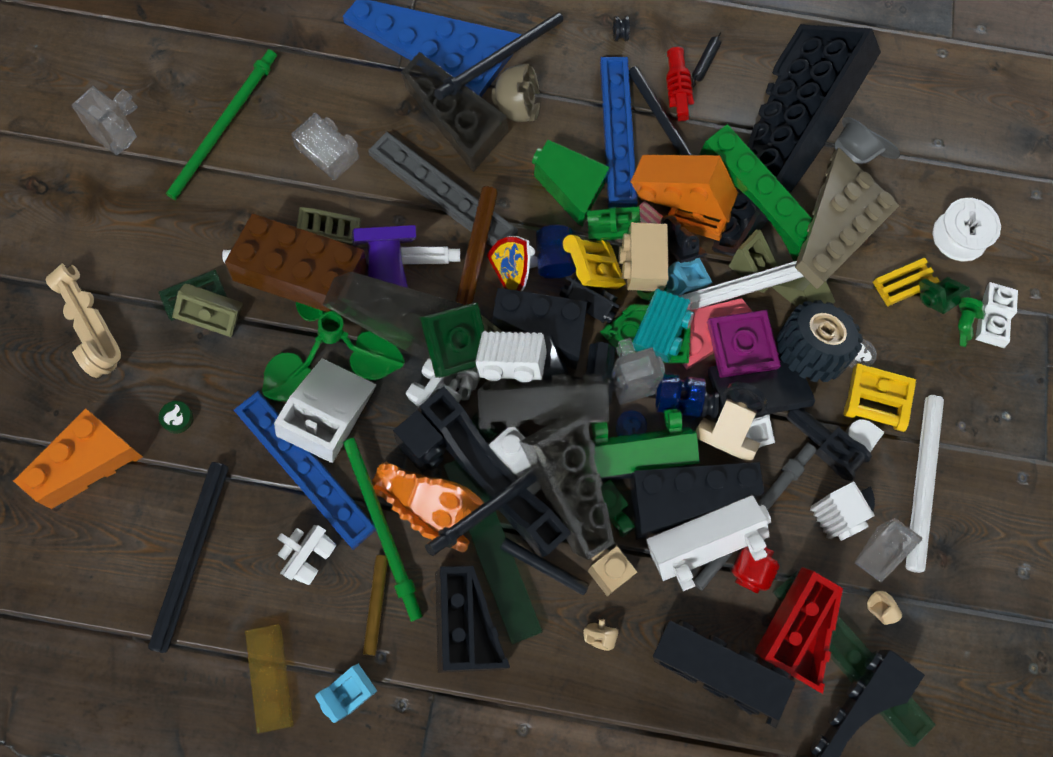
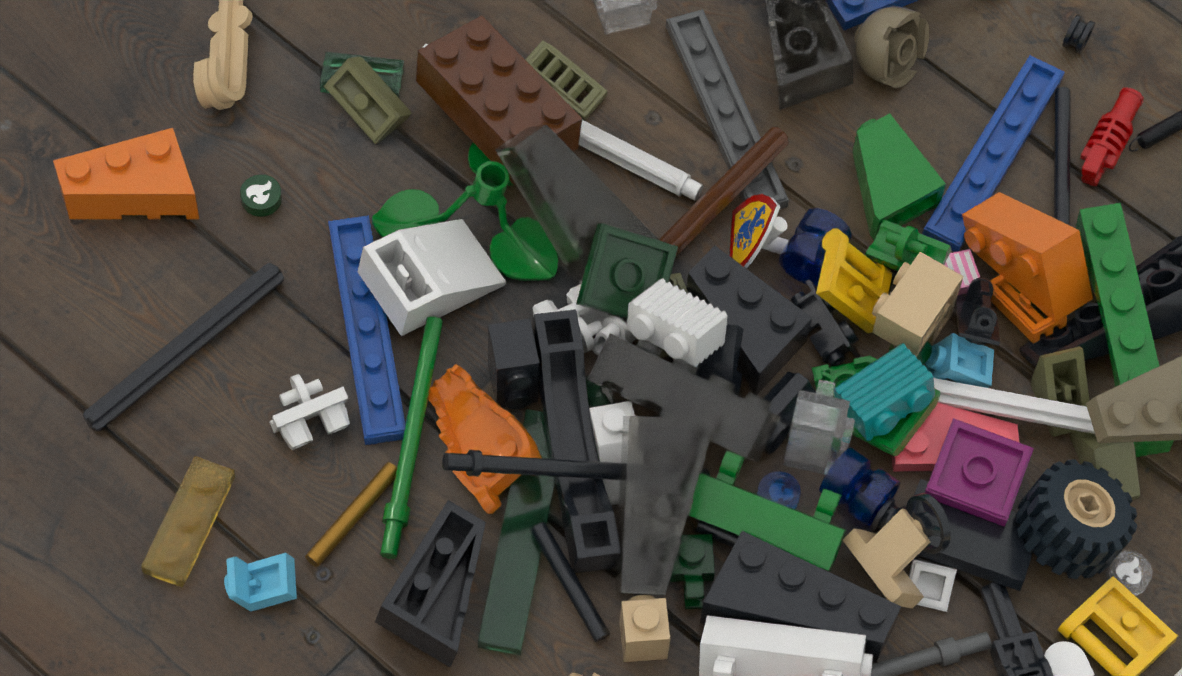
camera: 35 degrees right, 10 degrees down
(385, 251) = (610, 133): dark purple plant -> none

